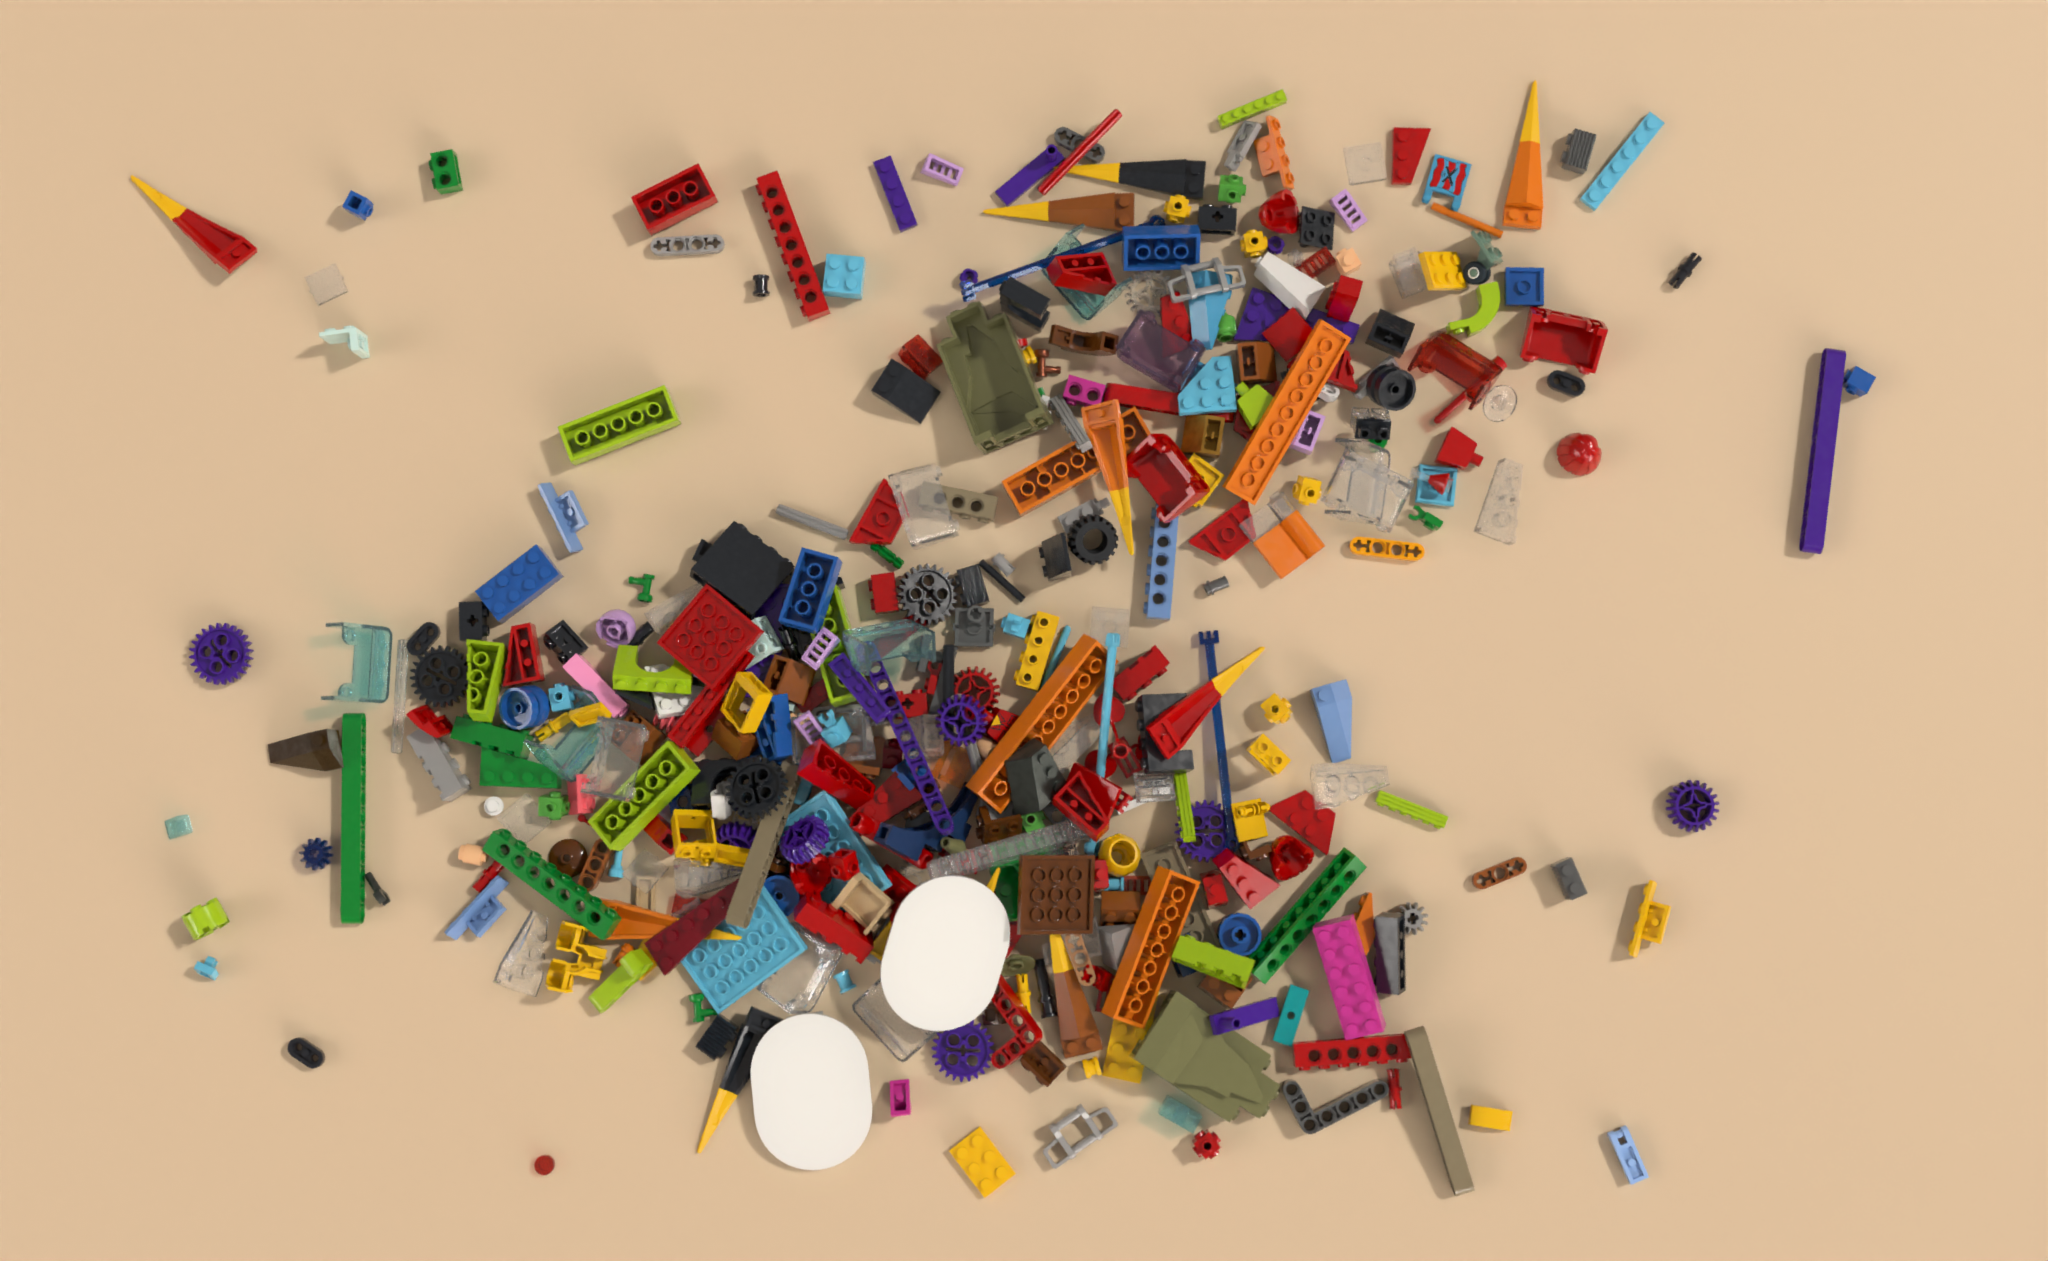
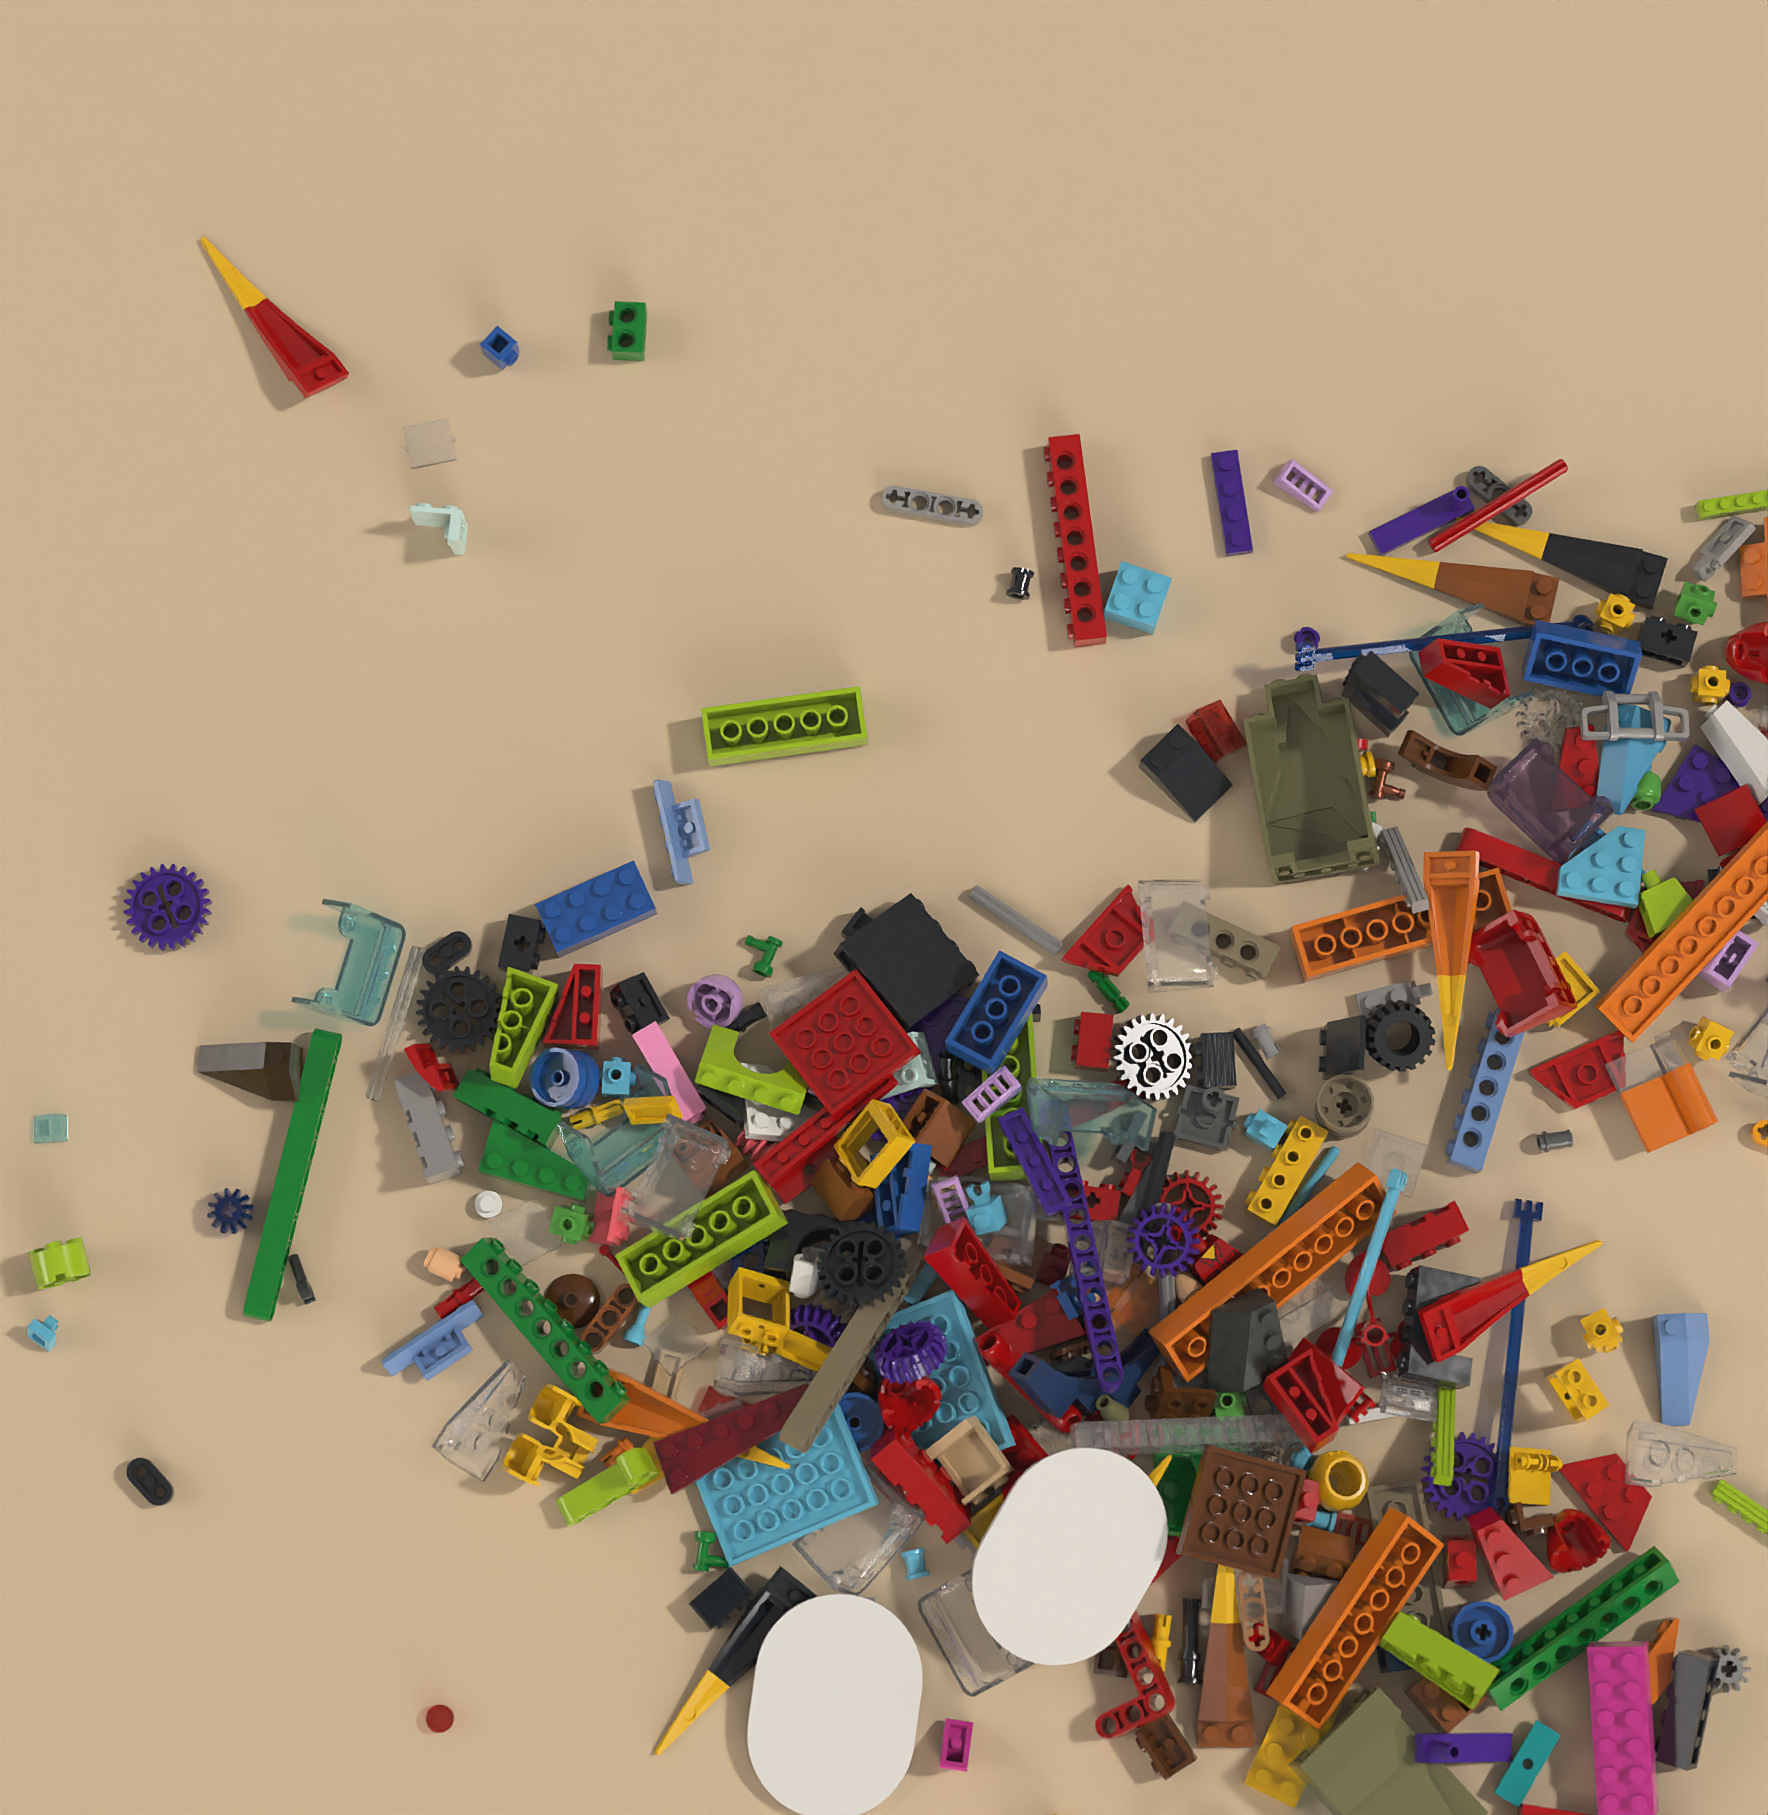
camera: 10 degrees right, 5 degrees down
(674, 199) = (930, 440): red brick -> none
(844, 864) = (957, 1399): red brick -> none
(962, 1067) = (1051, 1724): dark purple gear -> none
(1017, 964) = (1162, 1599): olive dish -> none
(1058, 589) = (1349, 1091): none -> dark tan wheel
(1085, 387) = (1433, 826): dark pink brick -> none
(1091, 1067) = (1232, 1768): yellow wheel -> none
(1203, 435) = (1582, 930): pearl gold slope -> none
(1255, 362) = (1676, 848): dark orange slope -> none

